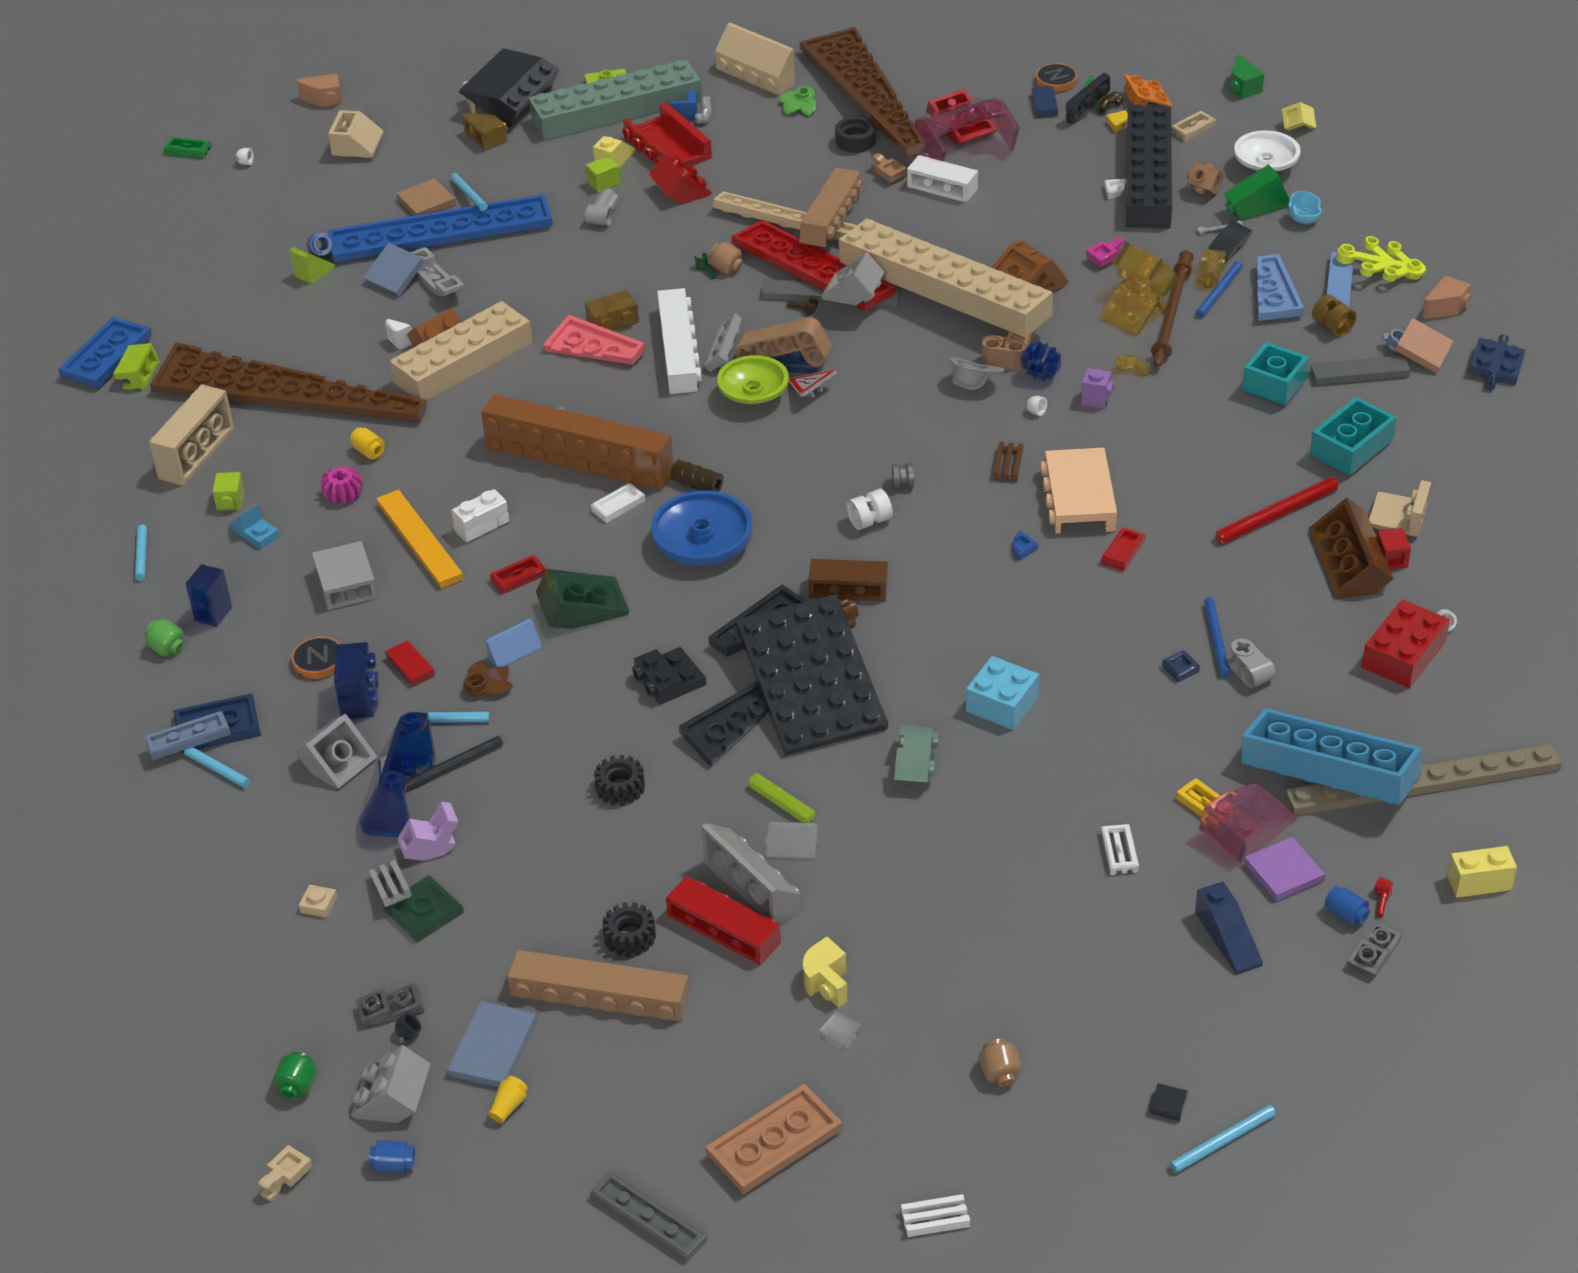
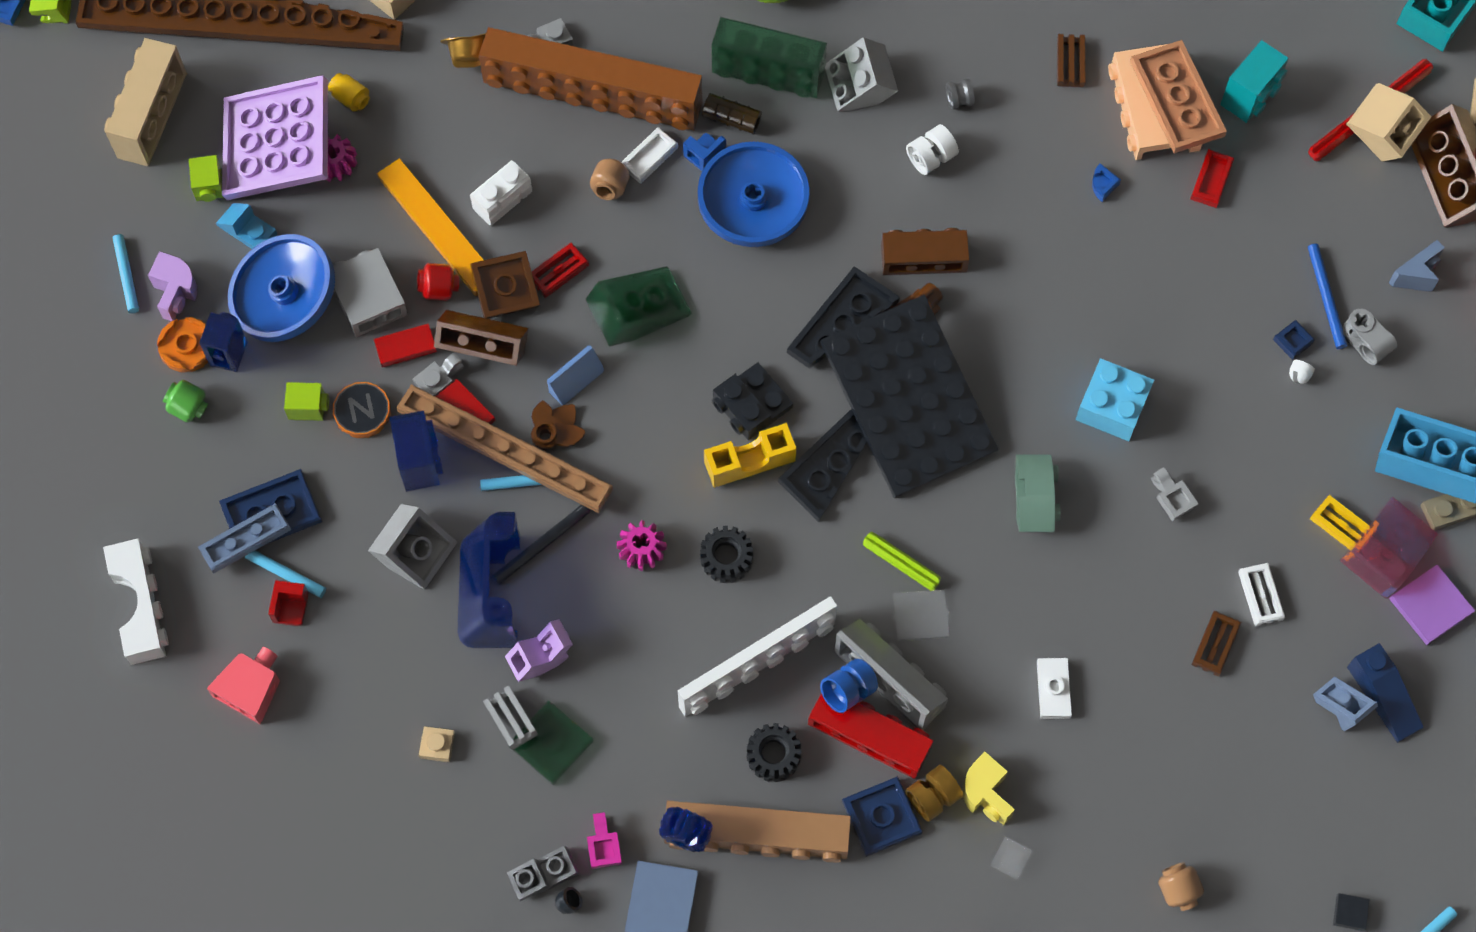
camera: 10 degrees left, 25 degrees up
(77, 796) = (142, 635): none -> white arch
(157, 841) = (247, 684): none -> coral torso
(173, 604) = (180, 345): none -> orange tile
(177, 558) = (176, 281): none -> lavender brick
(212, 785) = (288, 603): none -> red panel
(269, 645) = (305, 401): none -> lime brick
(270, 563) = (281, 287): none -> blue dish
(294, 464) = (275, 138): none -> lavender plate
(368, 616) = (405, 345): none -> red tile
(389, 637) = (436, 378): none -> light grey plate
(408, 571) = (437, 281): none -> red head
(435, 609) = (481, 337): none -> reddish brown brick
(446, 693) = (508, 449): none -> medium nougat tile
(452, 987) = (604, 846): none -> dark pink plate
(466, 576) = (505, 285): none -> reddish brown plate
(470, 417) = (465, 50): none -> pearl gold piece
(526, 961) = (685, 829): none -> clear blue gear
(542, 767) = (645, 554): none -> dark pink gear
(578, 512) = (609, 179): none -> medium nougat head
(626, 849) = (763, 653): none -> white plate
(658, 497) = (703, 149): none -> blue panel
(674, 708) = (731, 463): none -> yellow arch
(706, 869) = (849, 685): none -> blue wheel
(722, 989) = (882, 816): none -> dark blue tile
(736, 436) = (768, 57): none -> clear green brick
(776, 968) = (933, 793): none -> pearl gold wheel
(817, 457) = (861, 76): none -> light grey slope
(906, 904) = (1054, 688): none -> white plate
(1046, 768) = (1174, 498): none -> light grey plate
(1050, 892) = (1207, 665): none -> reddish brown tile
(1095, 479) = (1178, 96): none -> nougat plate
(1168, 477) = (1255, 81): none -> teal brick
(1183, 686) = (1301, 371): none -> white hinge
(1189, 934) = (1344, 702): none -> sand blue slope
(1288, 512) = (1388, 122): none -> tan slope
(1304, 620) = (1417, 271): none -> sand blue slope

